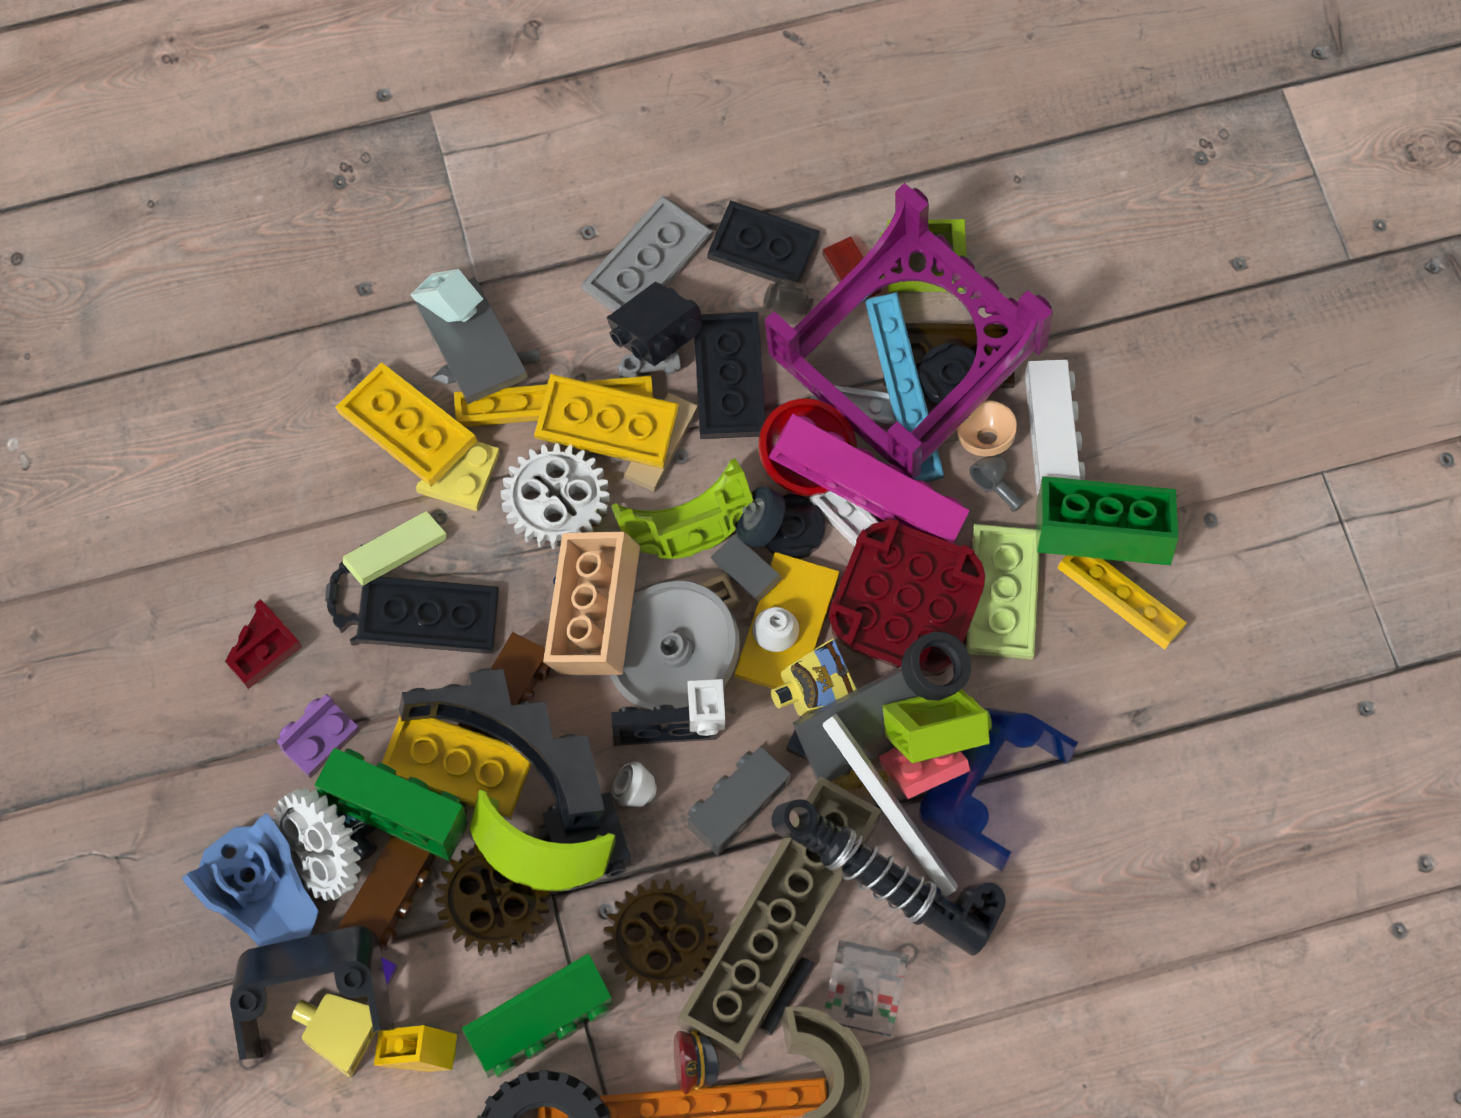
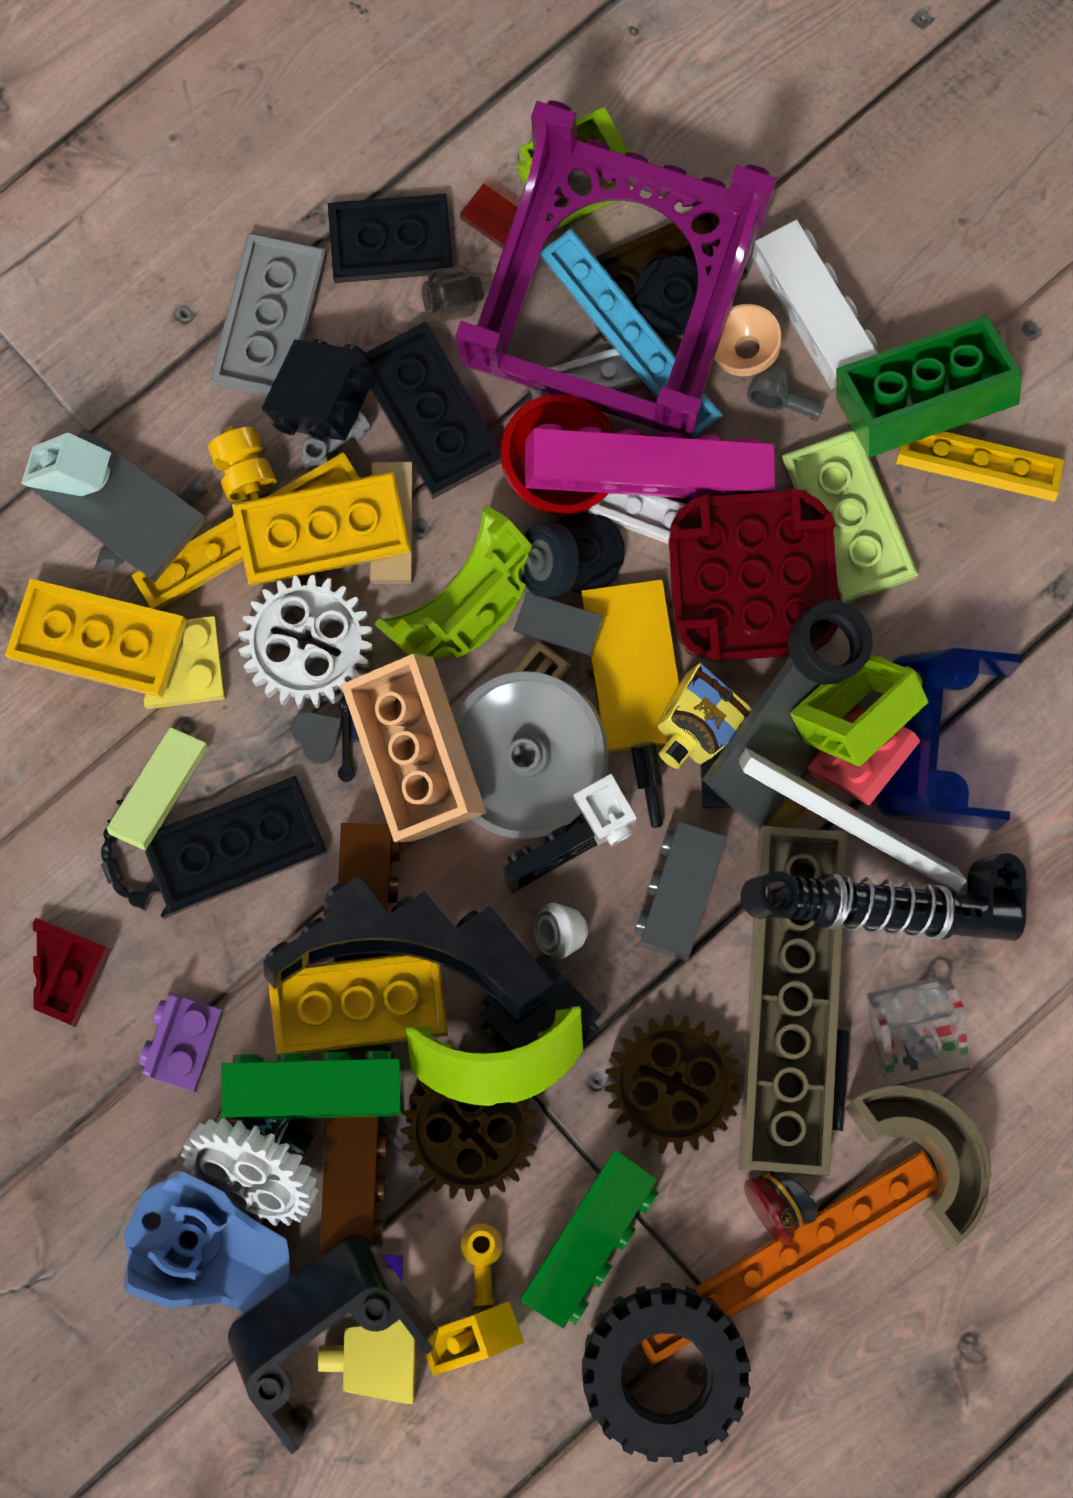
camera: 25 degrees left, 10 degrees up
(455, 998) = (482, 1261): none -> yellow bar
(528, 566) = (317, 735): none -> dark grey tile
(536, 603) = (345, 772): none -> black hinge
(573, 347) = (238, 456): none -> yellow wheel
(756, 707) = (648, 778): none -> black axle
(775, 629) = (616, 683): white cone -> none

